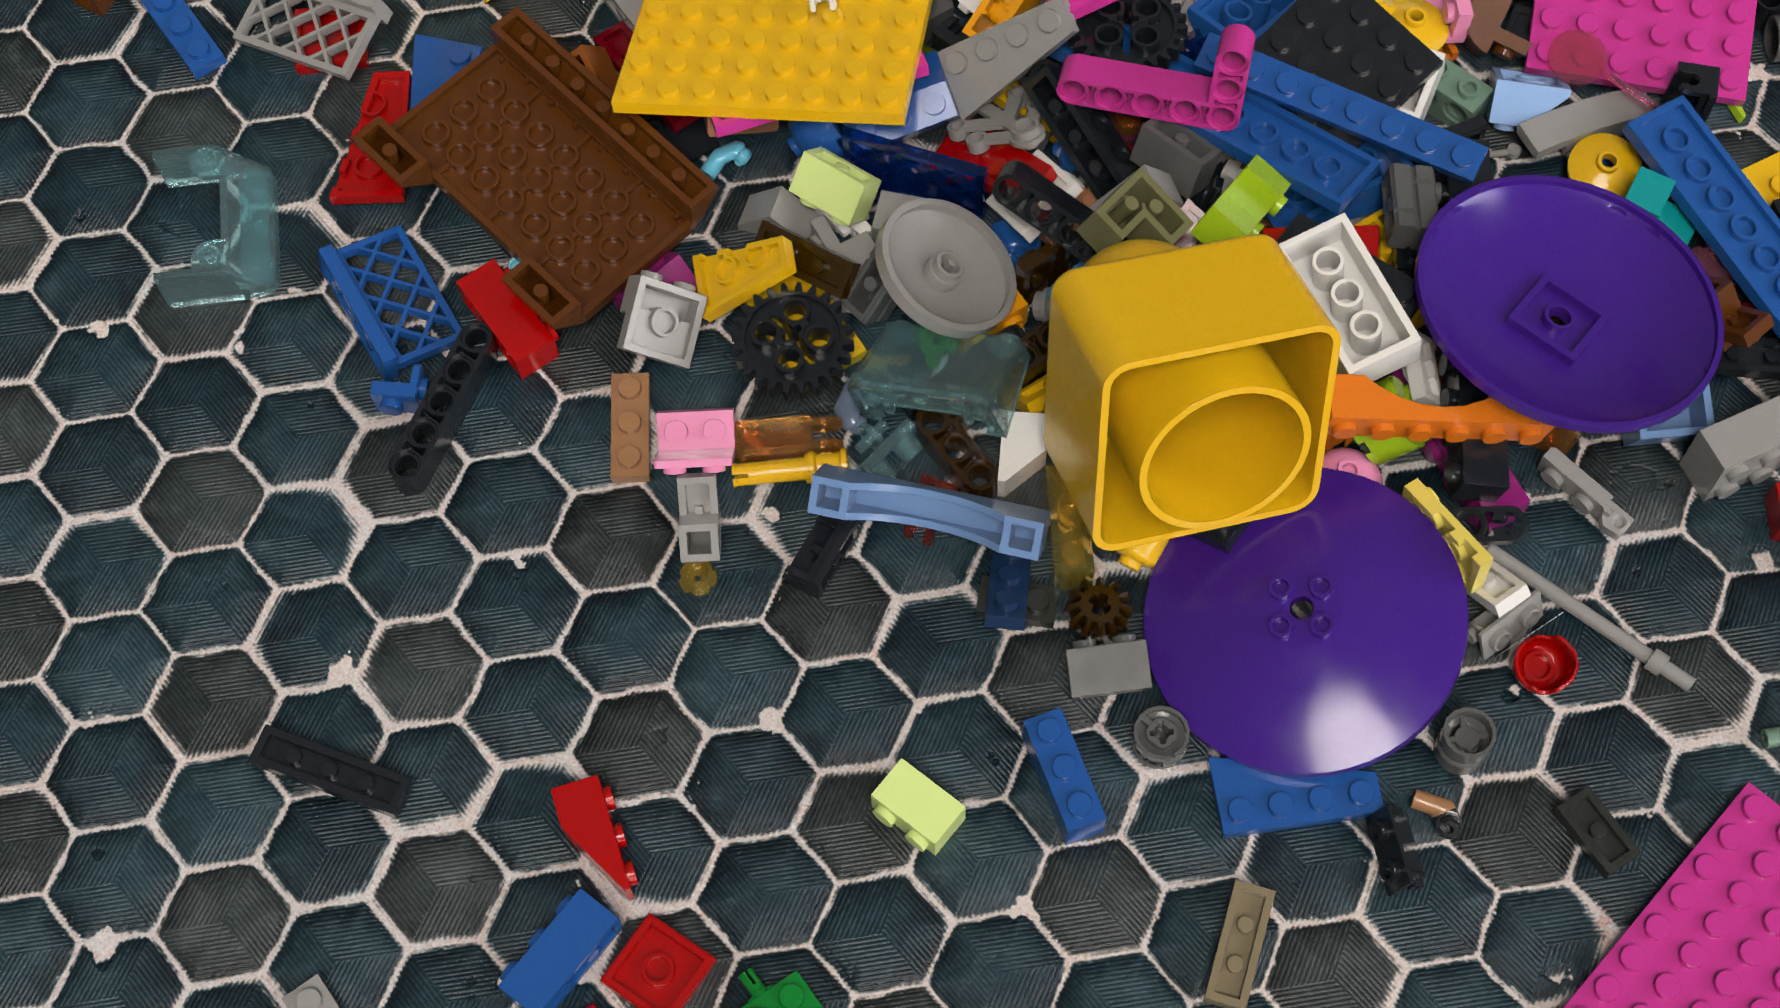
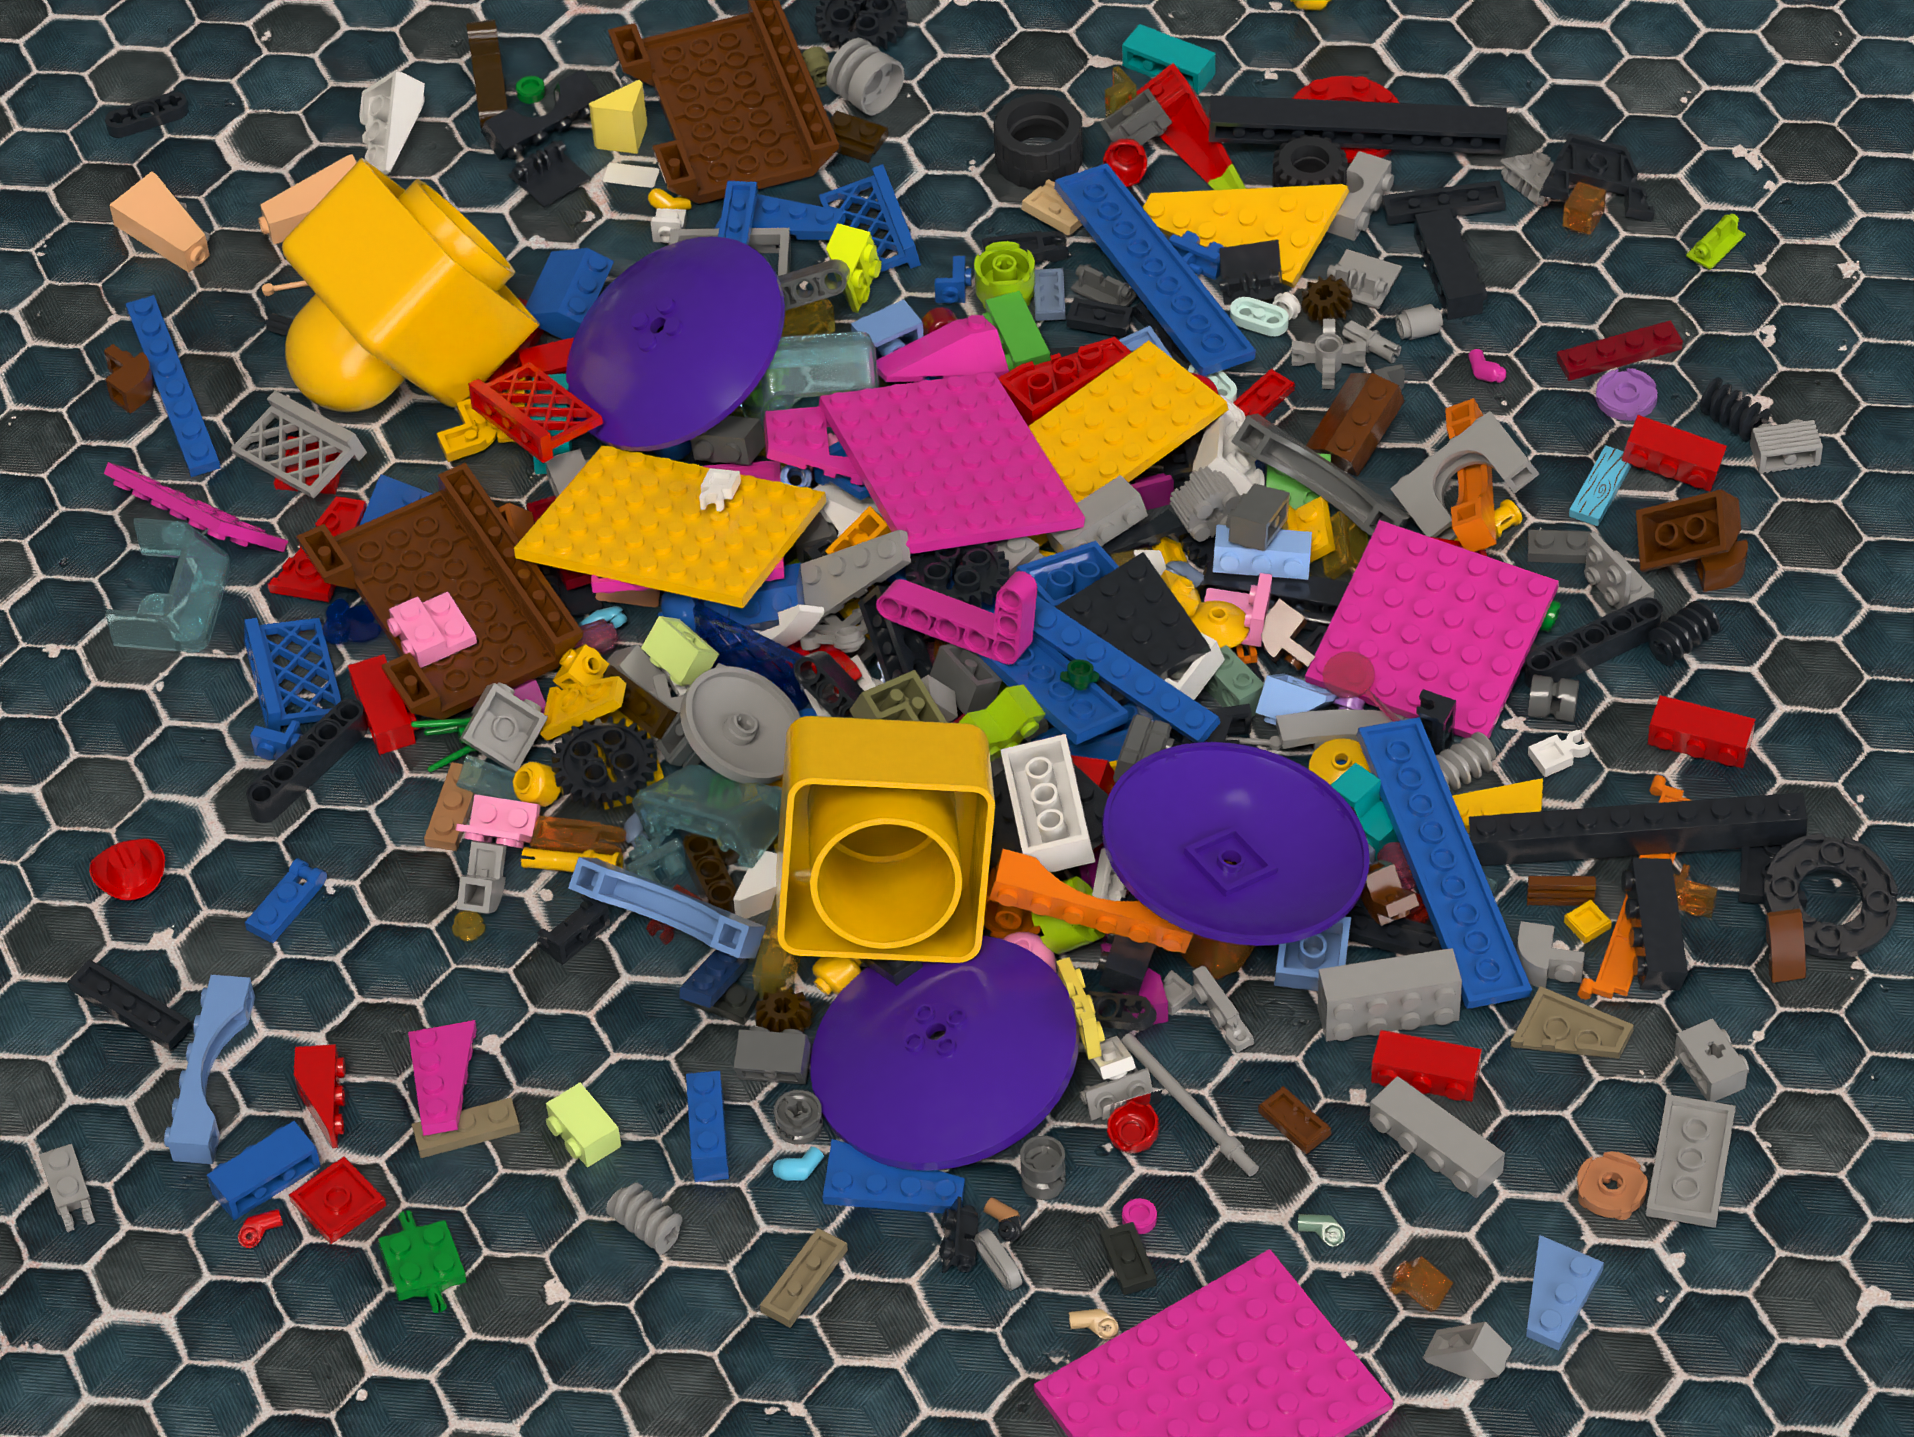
camera: 15 degrees right, 15 degrees down
(227, 127) = (199, 513): none -> dark pink wing
(275, 592) = (129, 868): none -> red hat
(441, 220) = (349, 623): none -> clear blue plate
(449, 754) = (224, 1013): none -> medium blue arch
(473, 592) = (285, 901): none -> blue plate
(540, 217) = (430, 628): none -> bright pink plate
(612, 331) = (445, 726): none -> green plant
(665, 388) = (486, 779): none -> clear light blue plate
(720, 383) = (536, 784): none -> yellow head
(724, 227) = (580, 667): none -> yellow brick
(727, 771) = (440, 1072): none -> dark pink wing
(732, 184) = (598, 636): none -> clear pink brick
(779, 839) = (475, 1126): none -> dark tan plate
(960, 131) = (793, 624): none -> white slope
(1033, 912) = (645, 1217): none -> light grey piece
(1182, 803) = (798, 1168): none -> medium azure arm
(1313, 128) = (1079, 674): none -> dark green plate
(1454, 870) = (998, 1260): none -> light grey tile
(1525, 474) = (1177, 992): none -> light grey tile
(1583, 91) = (1349, 703): none -> medium lavender plate
(1585, 770) = (1141, 1213): none -> dark pink tile
(1590, 920) = (1096, 1320): none -> tan arm
(1713, 611) = (1294, 1120): none -> reddish brown plate
(1739, 125) = (1466, 759): none -> light grey piece

